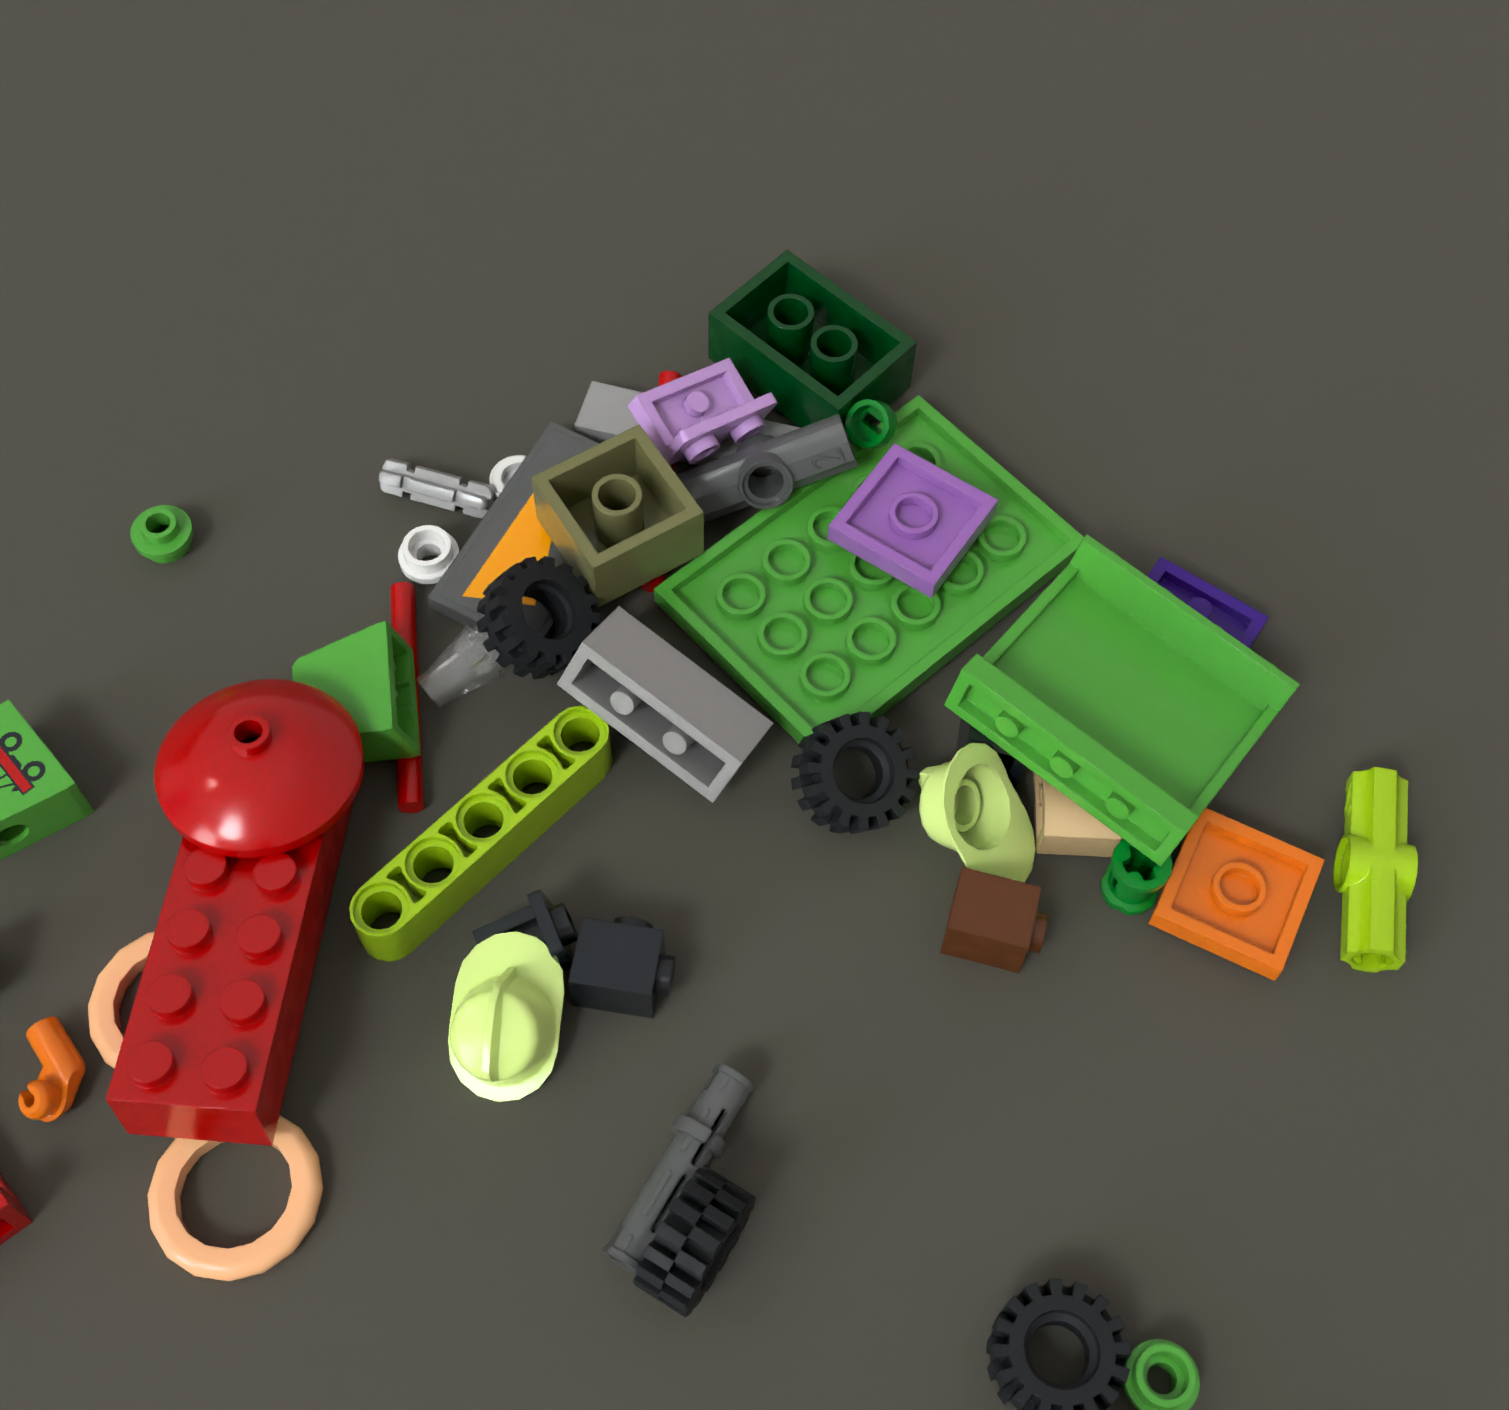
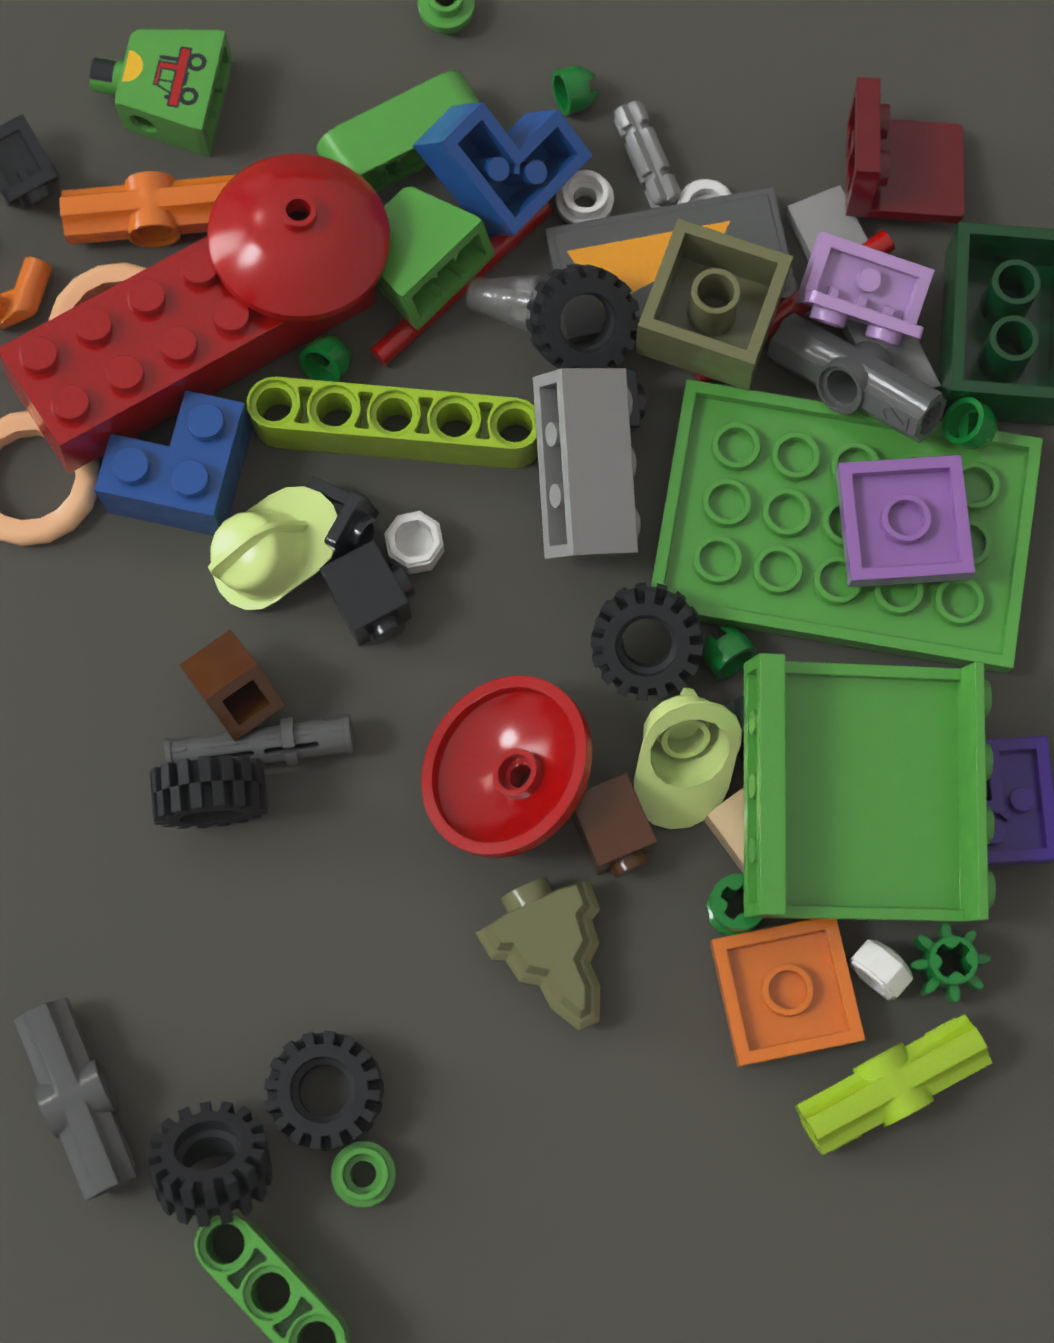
camera: 55 degrees right, 15 degrees up
(93, 890) = (146, 210): none -> orange piece
(241, 628) = (382, 138): none -> bright green beam
(321, 506) = (572, 89): none -> green hinge
(345, 577) = (502, 173): none -> blue brick
(374, 1052) = (182, 483): none -> blue brick
(386, 845) = (328, 346): none -> green hinge
(604, 893) = (414, 542): none -> white tile
(607, 1143) = (232, 685): none -> reddish brown brick
(615, 332) = (901, 165): none -> dark red bracket
(838, 954) = (485, 752): none -> red dish
(912, 720) = (728, 653): none -> green hinge
(1061, 1051) = (550, 945): none -> olive rock
(1270, 806) = (881, 969): none -> white tile
(1298, 755) = (965, 964): none -> green gear

